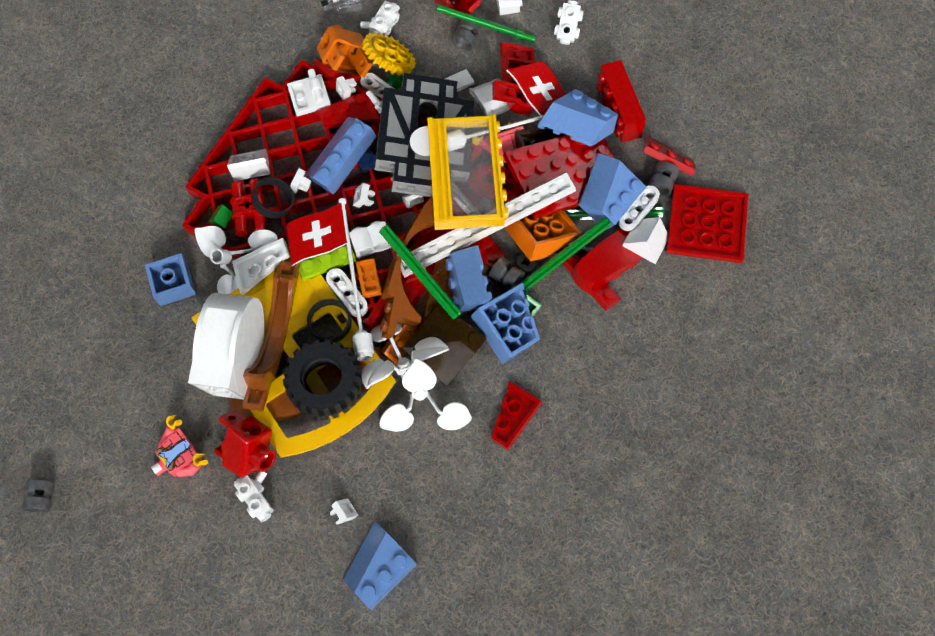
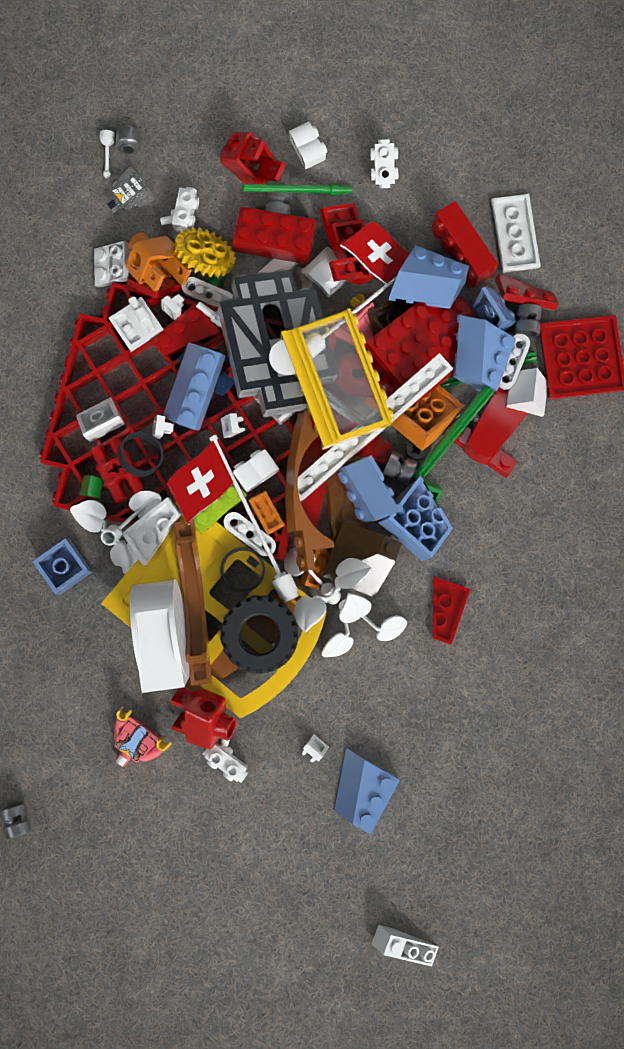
camera: 25 degrees left, 15 degrees up
(305, 47) = (111, 264): none -> white plate
(420, 272) = (319, 496): green axle -> none
(454, 57) = (274, 235): none -> red brick
(633, 157) = (492, 309): none -> medium blue slope
(673, 106) = (515, 233): none -> white tile

